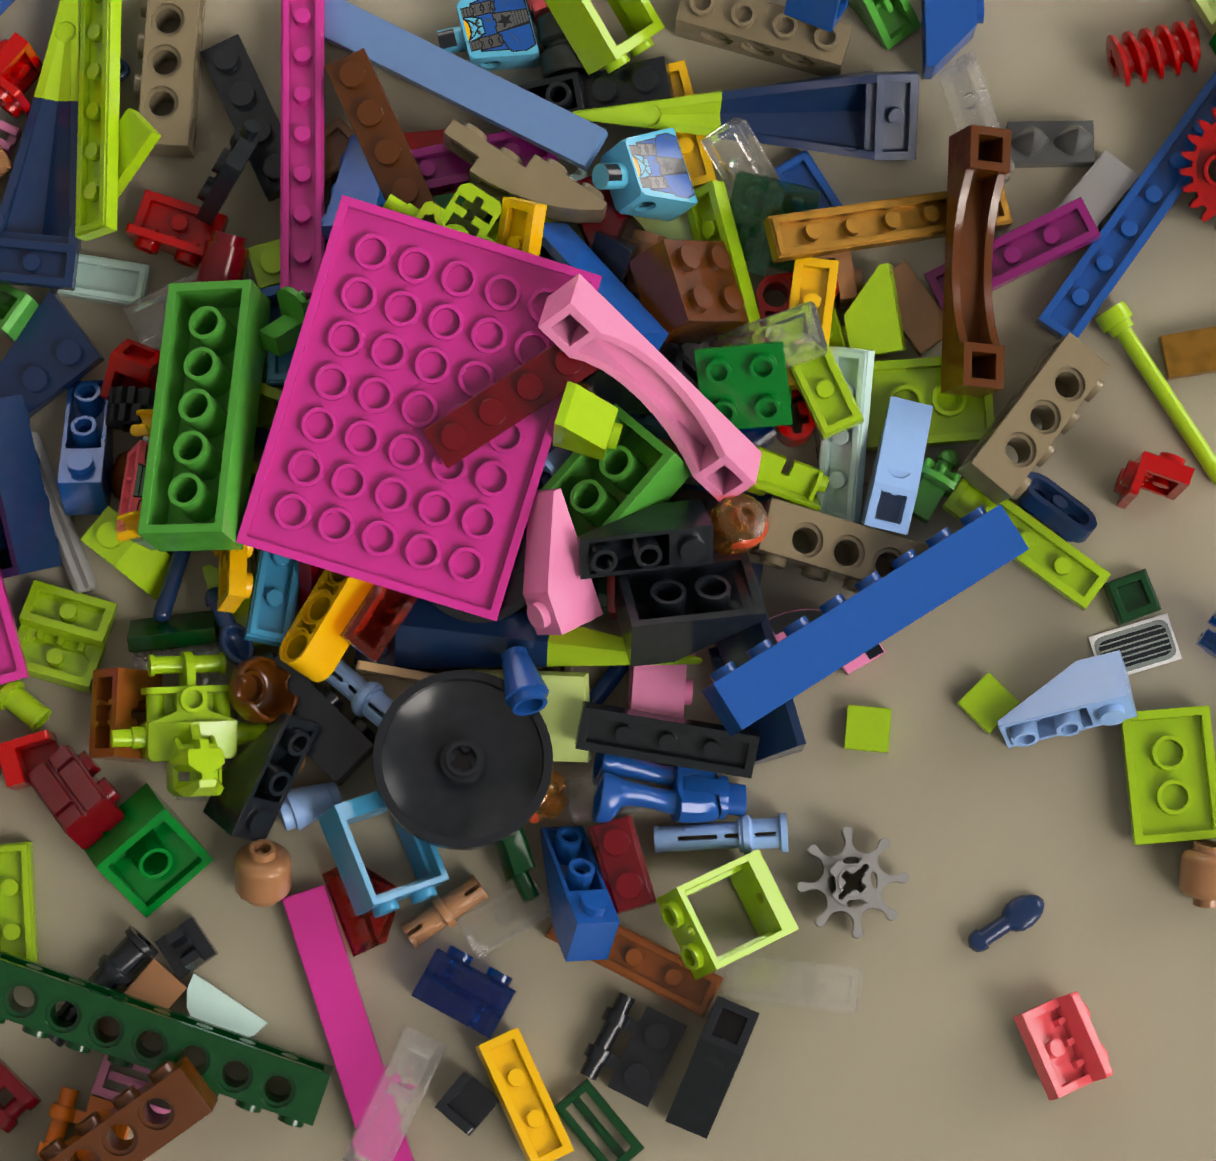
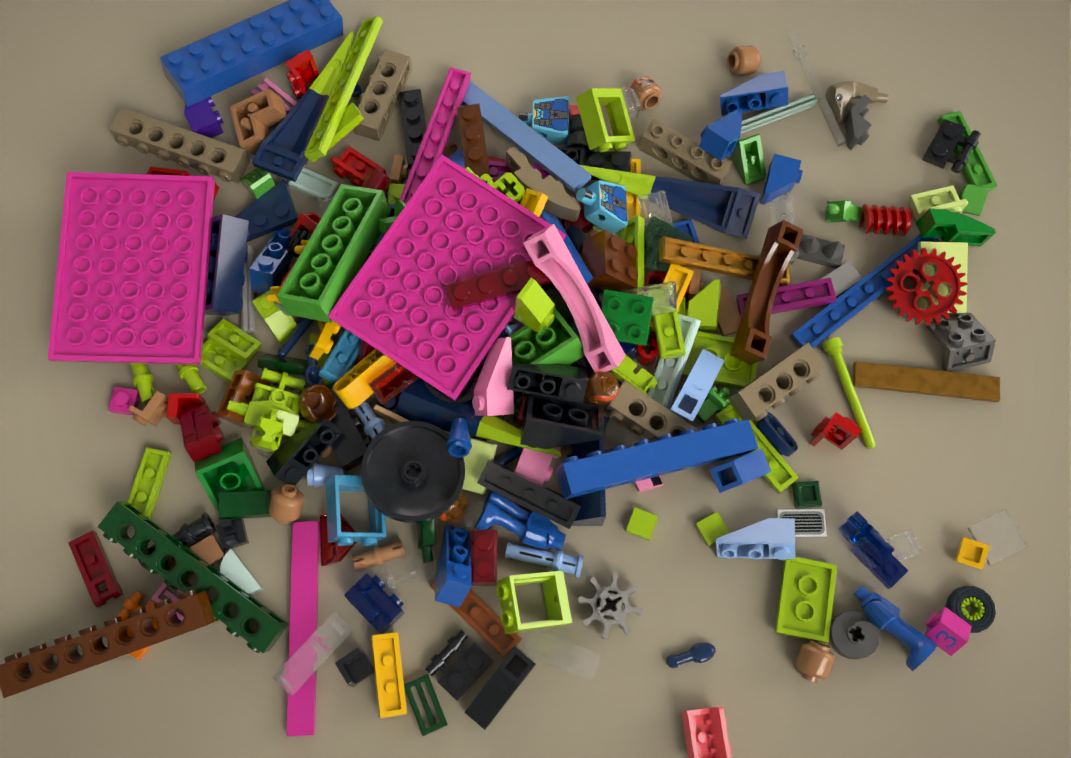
camera: 10 degrees right, 10 degrees down
(191, 894) = (244, 504): none -> dark green tile
(227, 170) = (391, 146): black plate -> none
(253, 214) = (399, 171): none -> medium nougat bracket
(1008, 593) = (740, 470): none -> blue slope
(1073, 59) = (842, 212): none -> bright green piece

